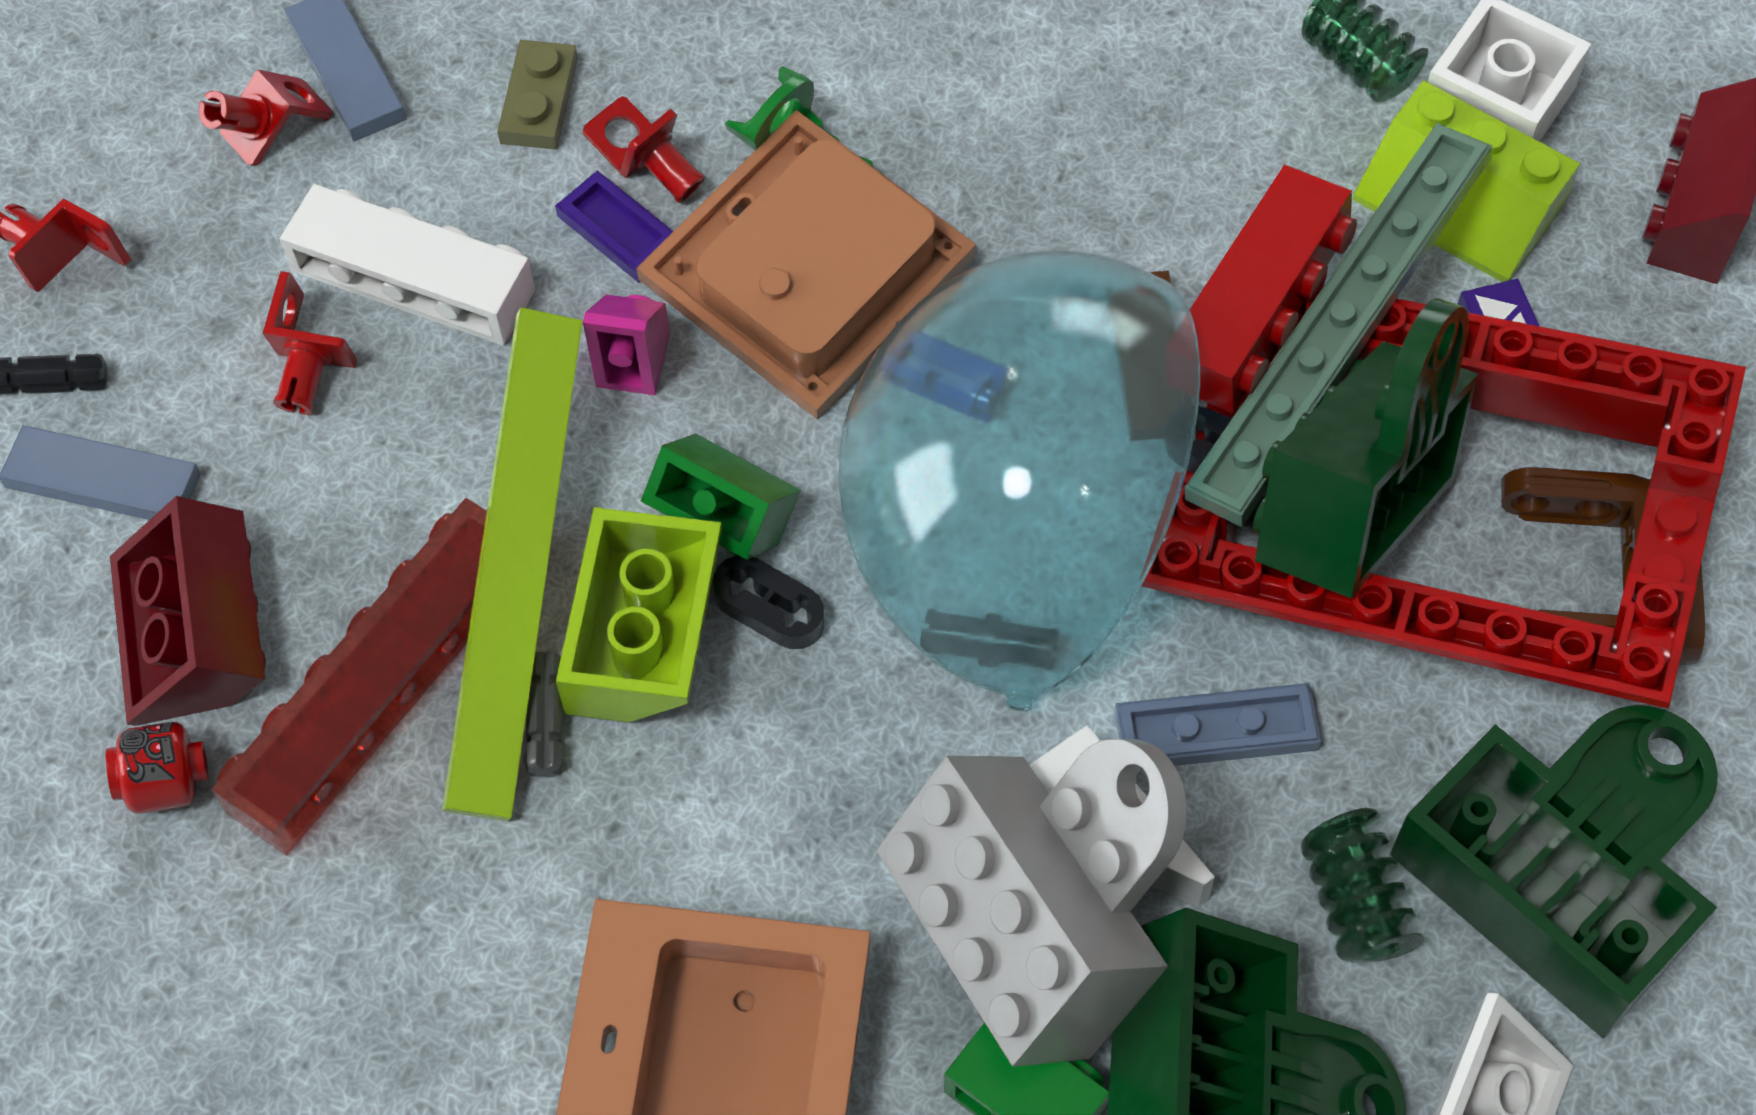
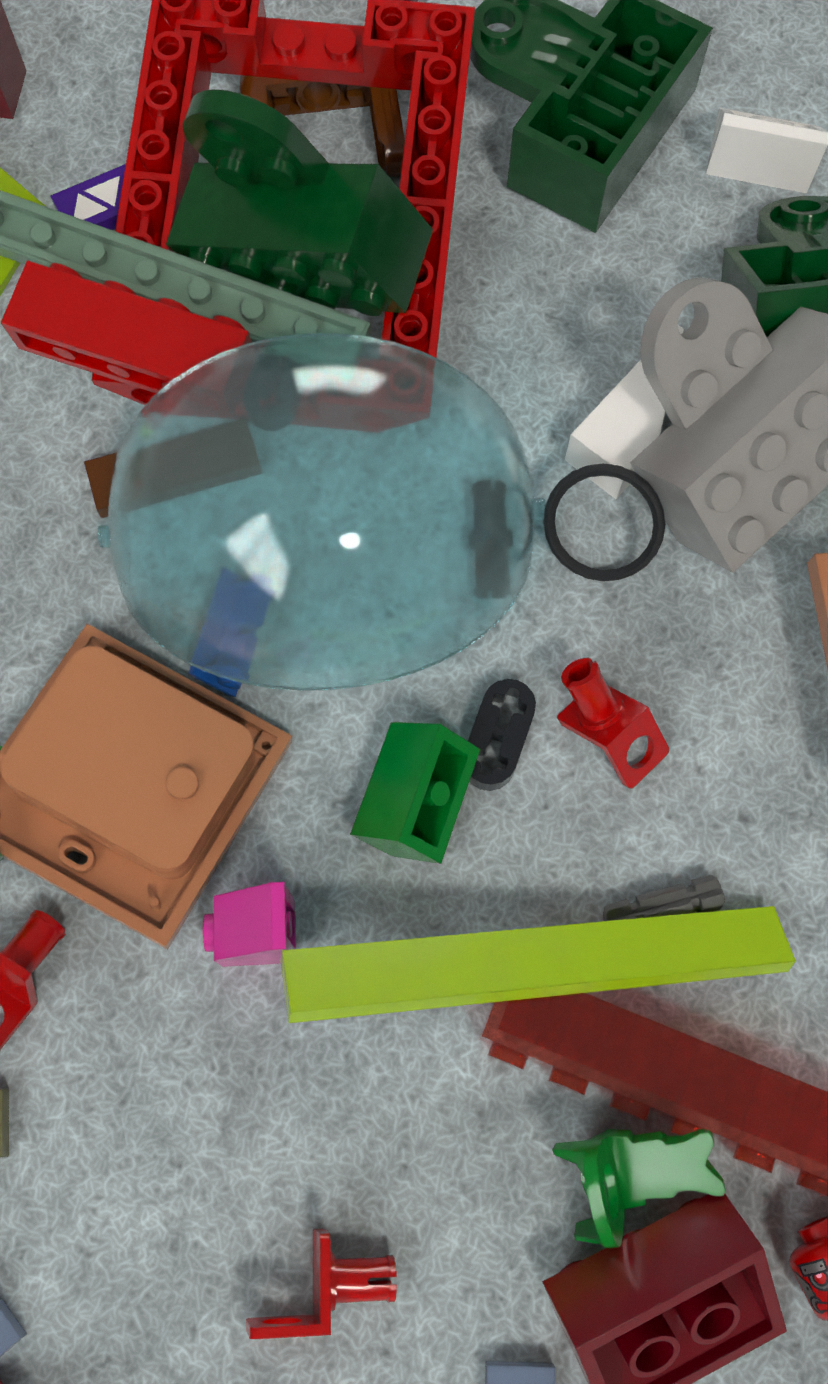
camera: 105 degrees left, 10 degrees up
(305, 608) = (628, 1168): none -> green hair
(408, 263) = (192, 1209): white brick -> none
(612, 222) = (102, 991): dark purple tile -> none
(637, 615) = (564, 828): lime slope -> none
(748, 700) = (610, 720): none -> red bracket
(966, 708) = (611, 471): none -> black tyre
(1224, 724) = (521, 364): sand blue tile -> none
(1355, 888) = (640, 234): clear green piece -> none

